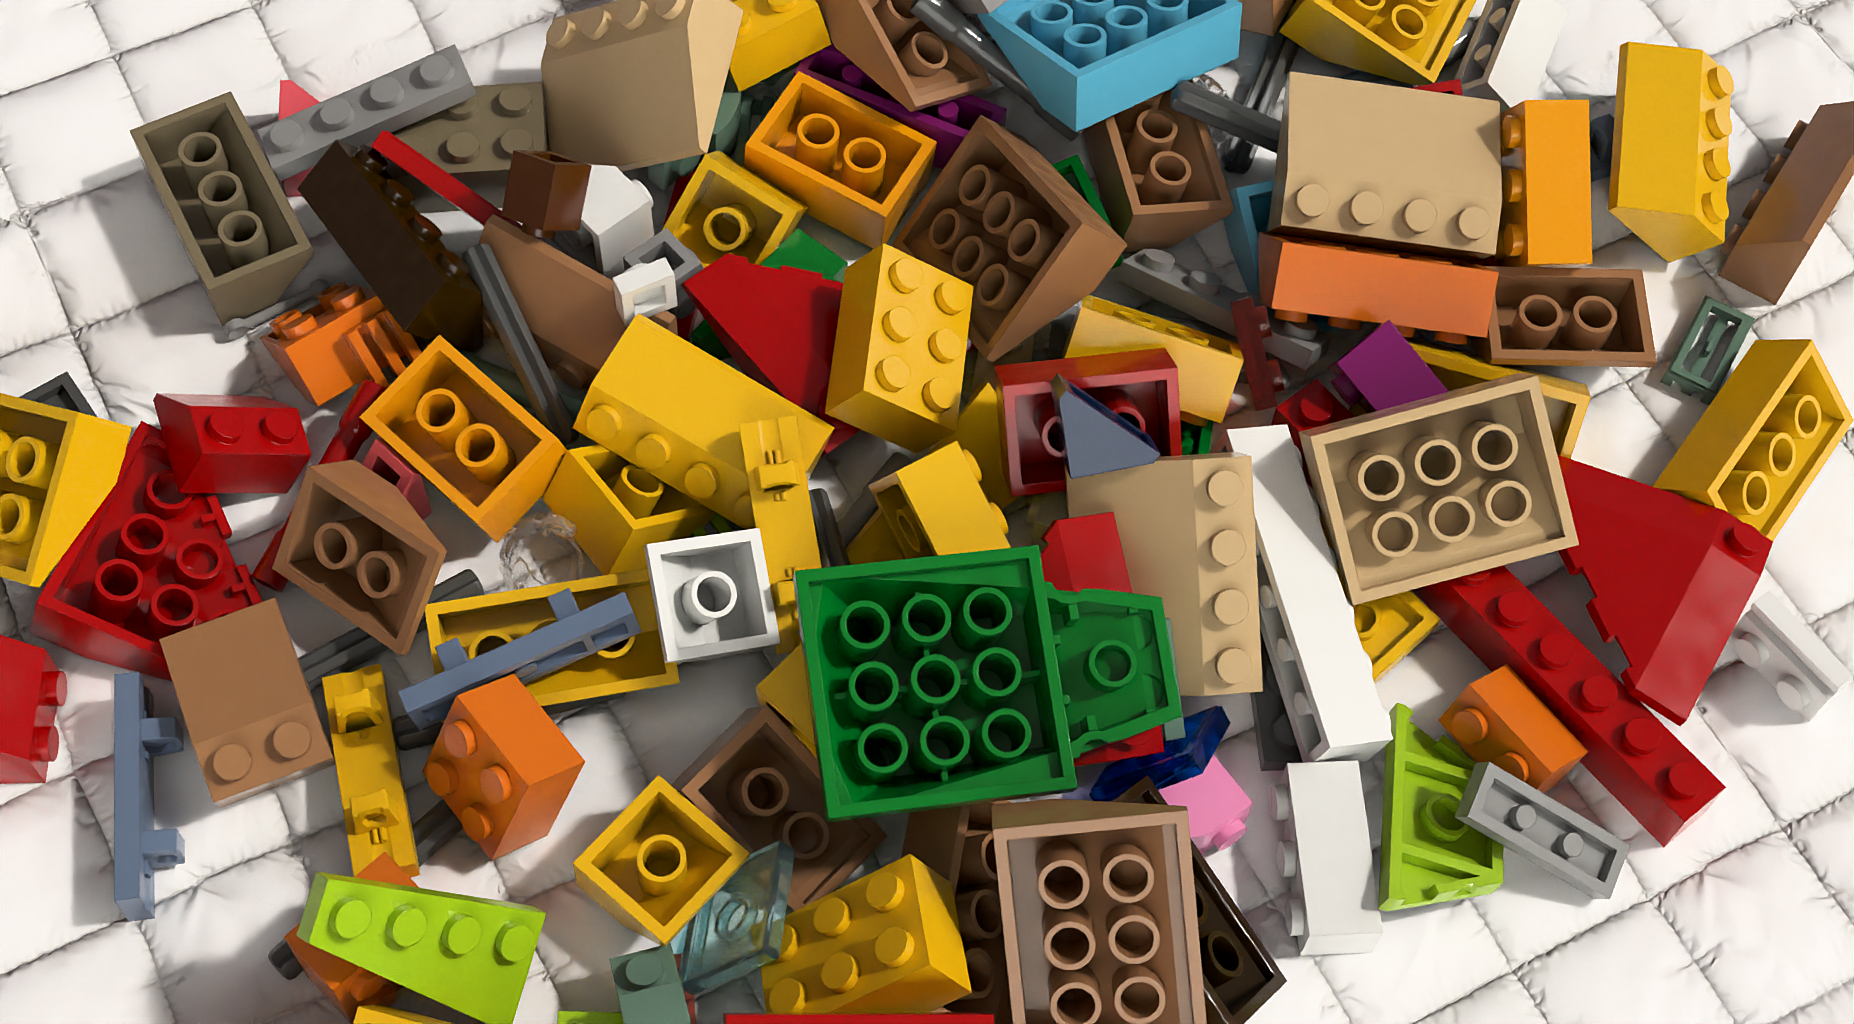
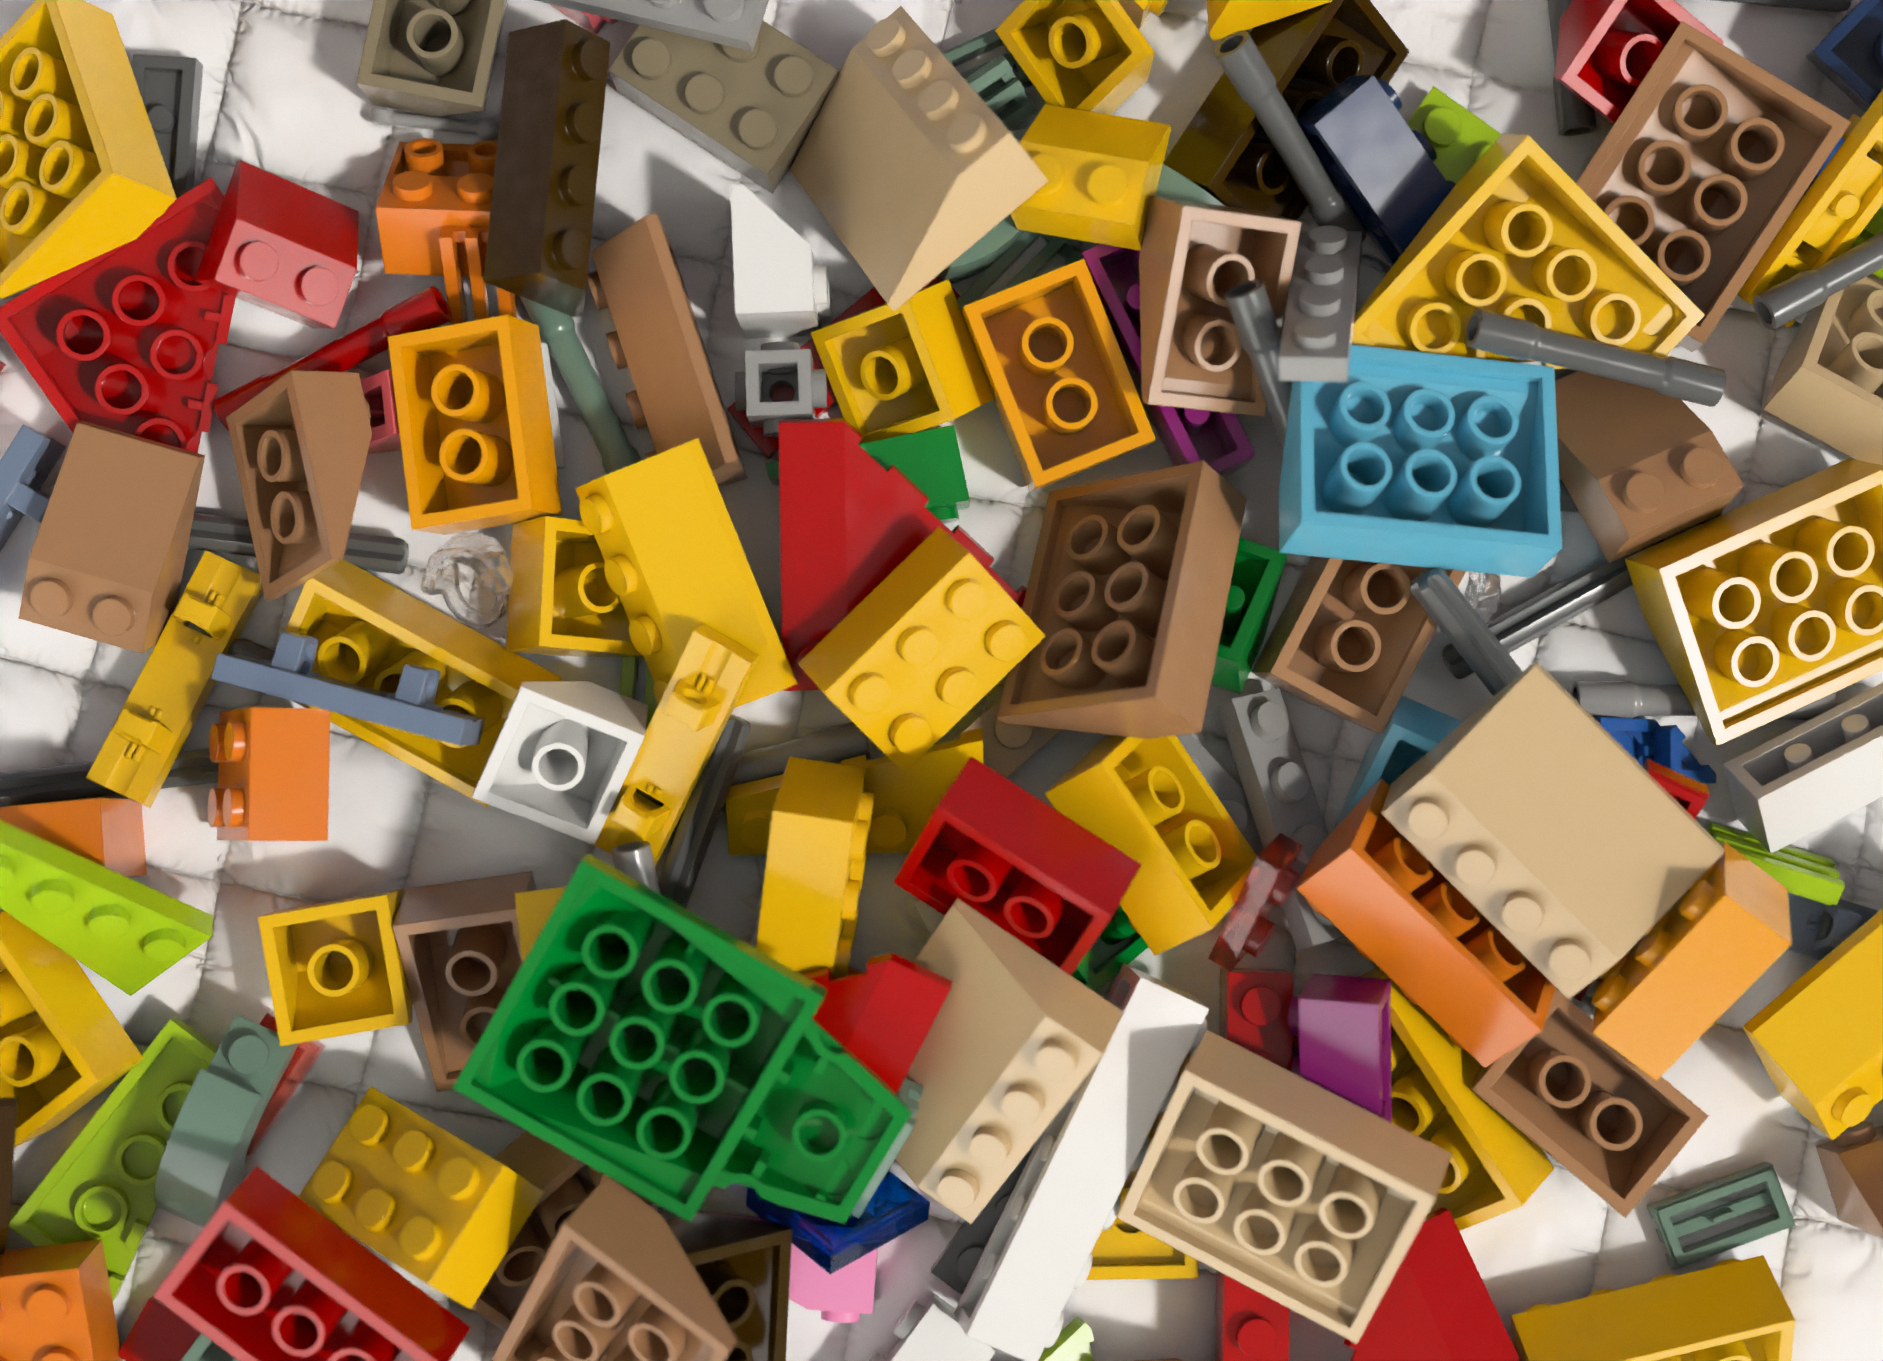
camera: 45 degrees right, 25 degrees up
(437, 179) = (662, 163): red tile -> none
(519, 343) = (595, 358): dark grey axle -> none
(545, 192) = (712, 236): reddish brown brick -> none
(645, 290) = (716, 420): white plate -> none
(740, 923) = (360, 1075): clear light blue tile -> none
(1094, 436) = (991, 917): slope -> none

